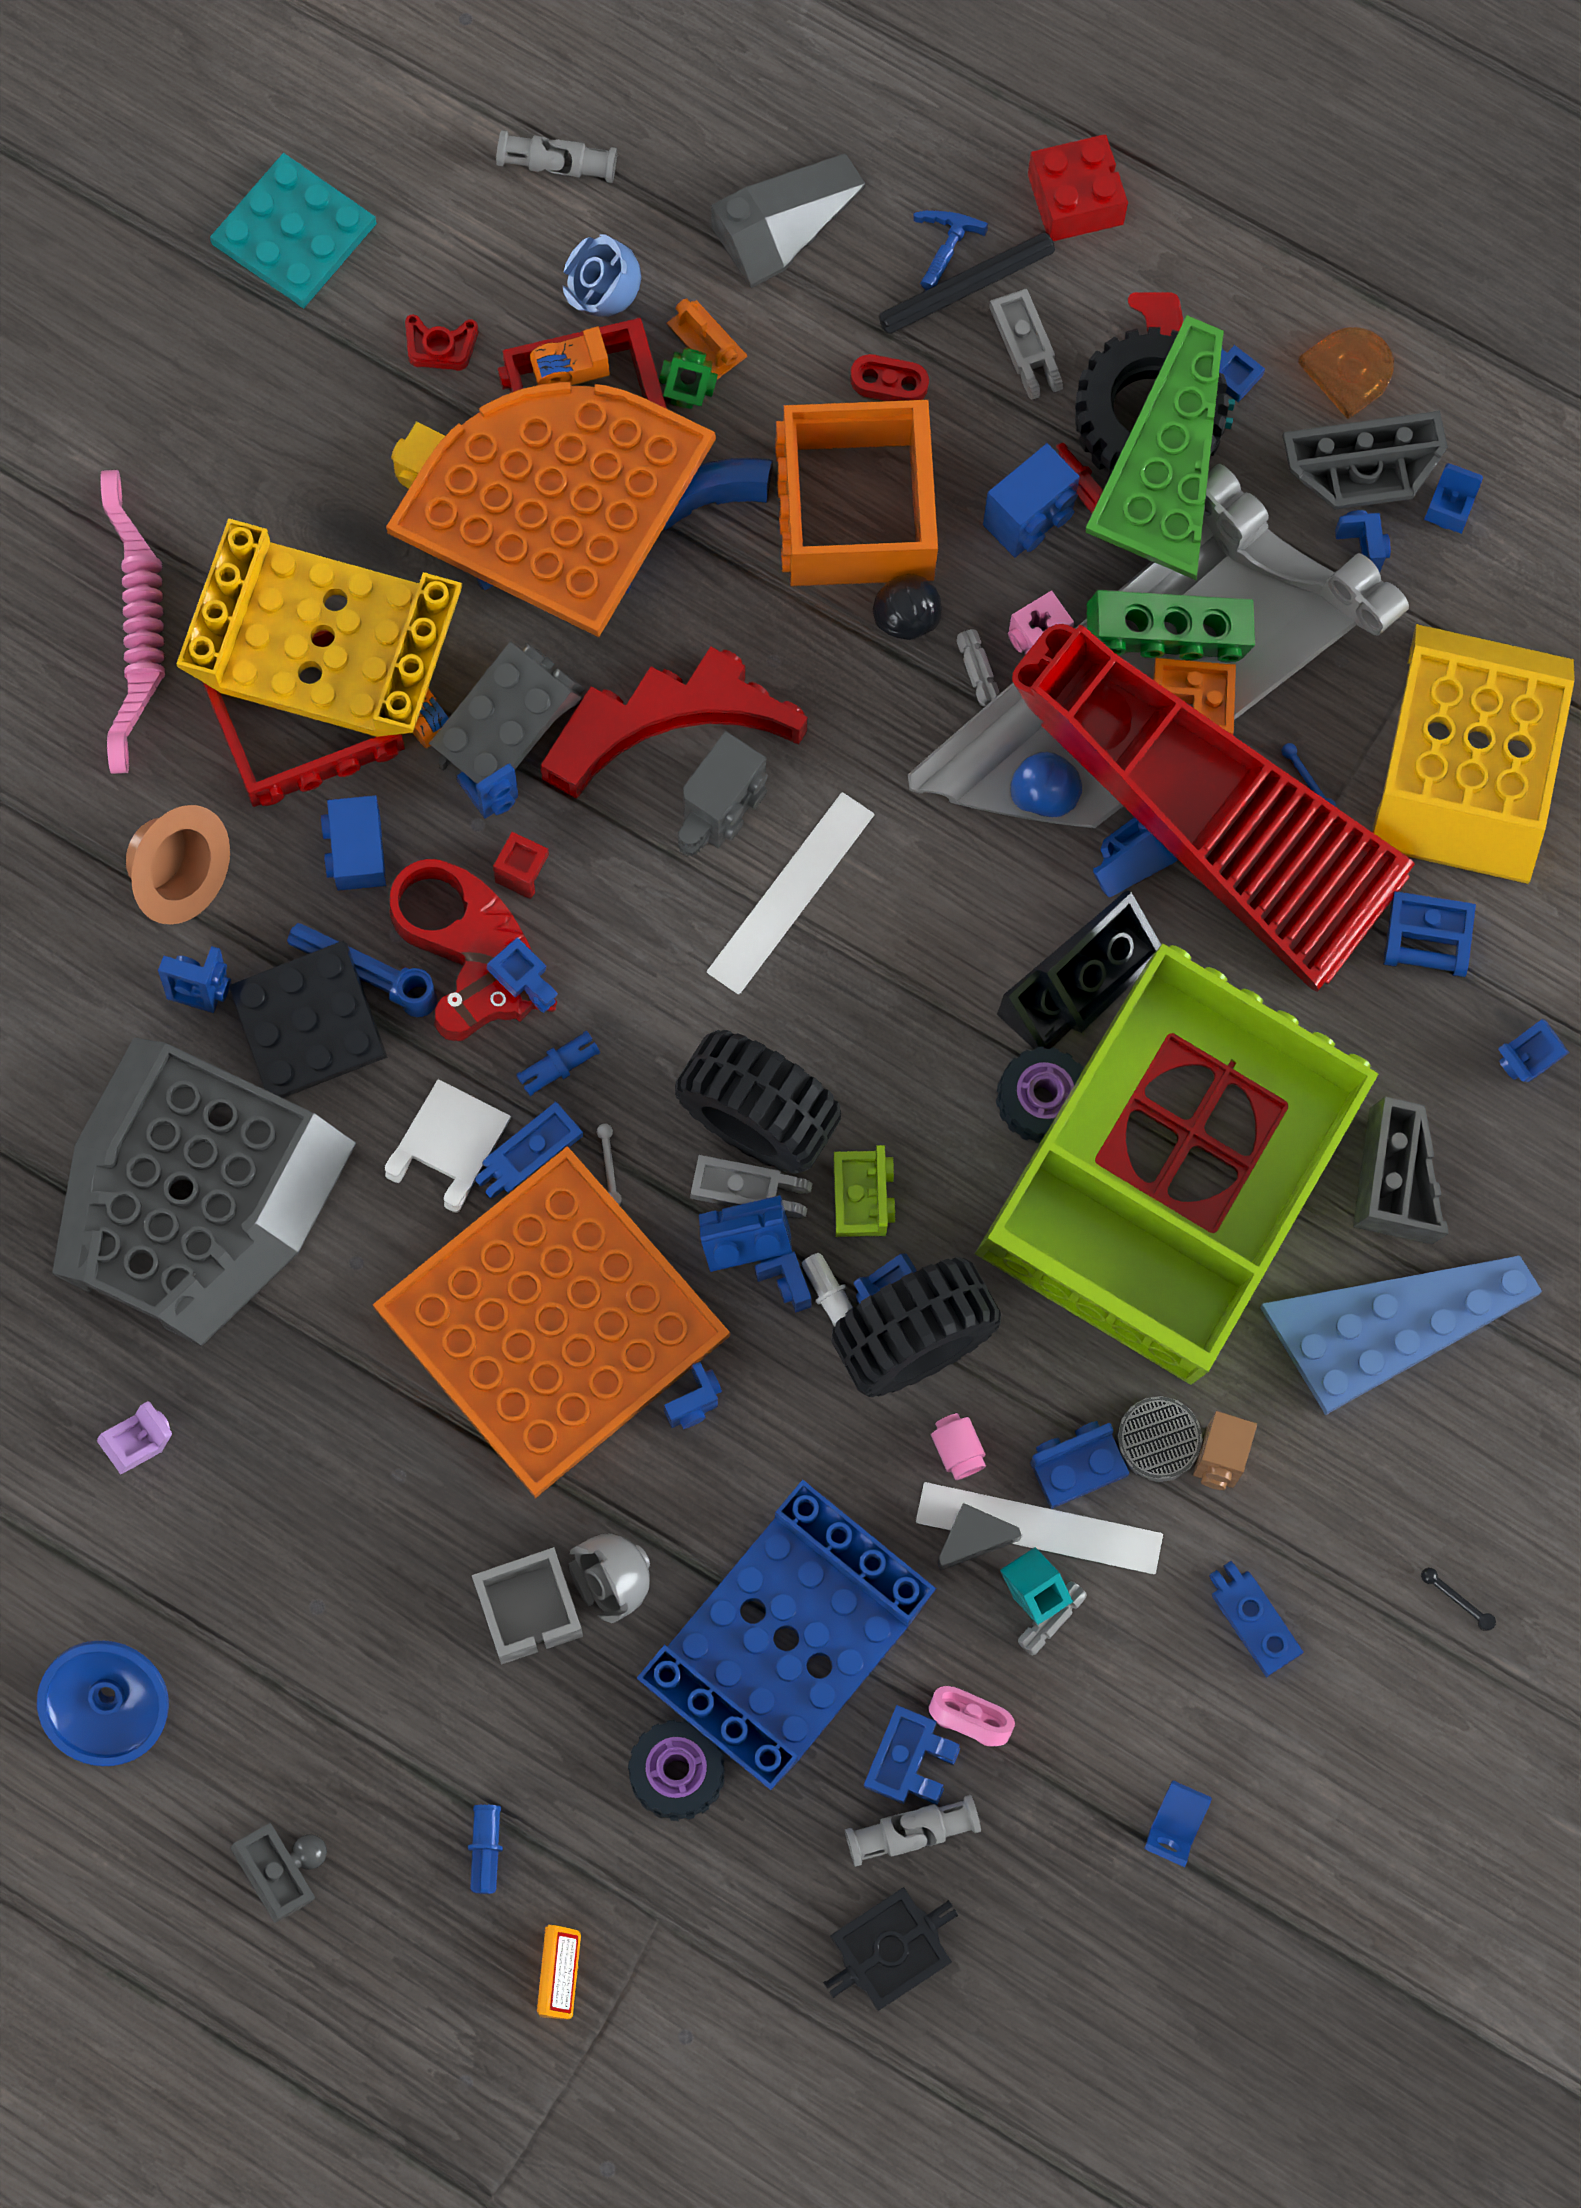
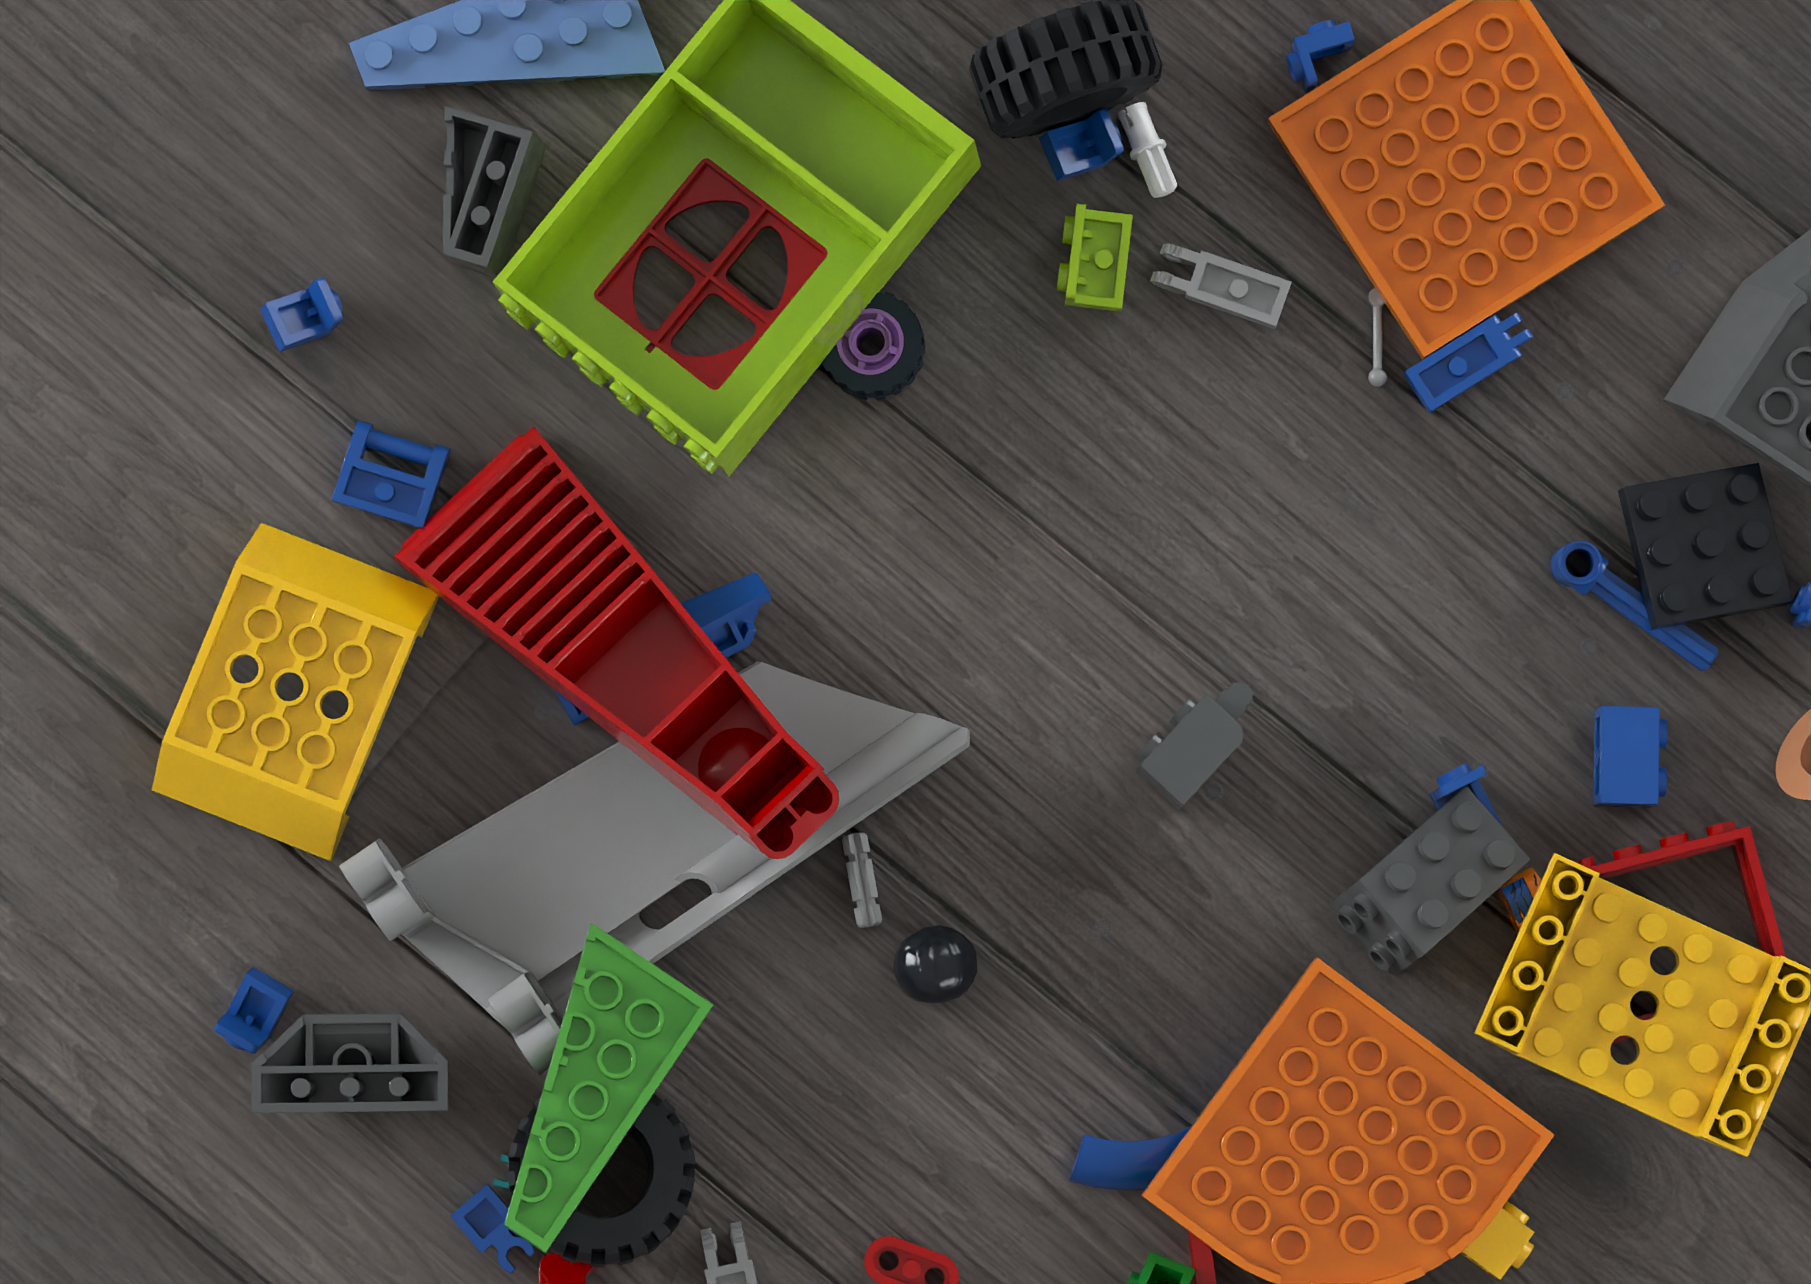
camera: 165 degrees left, 10 degrees up
(452, 1137) = (1552, 394): white flag -> none
(470, 942) = (1477, 591): red animal -> none
(519, 864) = (1438, 699): red panel -> none
(521, 970) = (1457, 559): blue plate -> none
(558, 1063) = (1422, 460): blue pin -> none
(661, 703) = (1183, 884): red arch -> none
(745, 1233) = (1237, 221): blue brick -> none
(758, 1101) = (1207, 351): black tyre -> none
(790, 893) = (1123, 635): white sticker -> none
(792, 1285) = (1189, 164): blue bracket -> none
(855, 427) = (1060, 1097): orange window -> none
(1031, 501) = (767, 1069): blue brick -> none
(1041, 613) = (775, 935): bright pink brick -> none
(1046, 785) = (810, 711): blue hair -> none
(1081, 975) = (802, 477): black slope -> none
(1088, 489) = (702, 1104): red axle -> none
(1202, 684) = (596, 808): orange plate -> none
(1229, 618) = (700, 903): green brick -> none
(1290, 752) = (480, 653): blue hinge -> none
(1350, 367) = (342, 1210): clear orange tile -> none
(1369, 531) = (360, 968): blue bracket -> none

